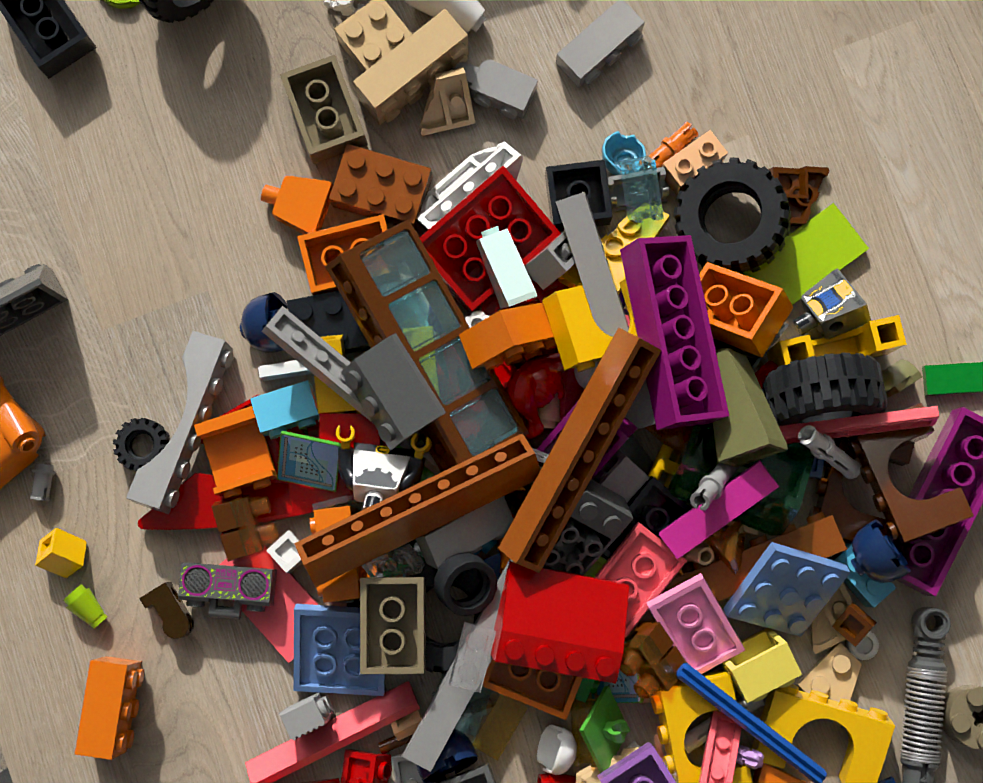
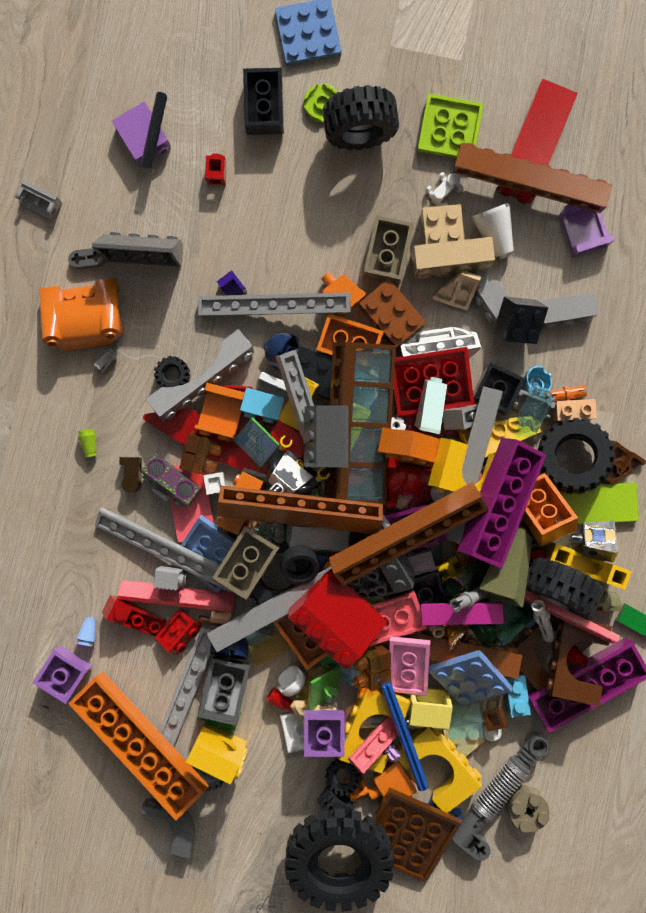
camera: 30 degrees right, 5 degrees up
(41, 157) = (215, 177): none -> red brick
(61, 553) = (92, 405): yellow panel -> none
(109, 707) = (67, 505): orange brick -> none
(150, 282) = (231, 284): none -> dark purple panel
(219, 270) = (274, 304): none -> light grey plate
(267, 683) = (158, 546): none -> light grey tile
(472, 657) = (277, 606): clear plate -> none
(550, 90) = (520, 320): none -> black brick
(820, 654) = (466, 722): none -> clear light blue piece
(878, 555) = (532, 693): dark blue cylinder -> none
(904, 474) = (576, 657): none -> red cone

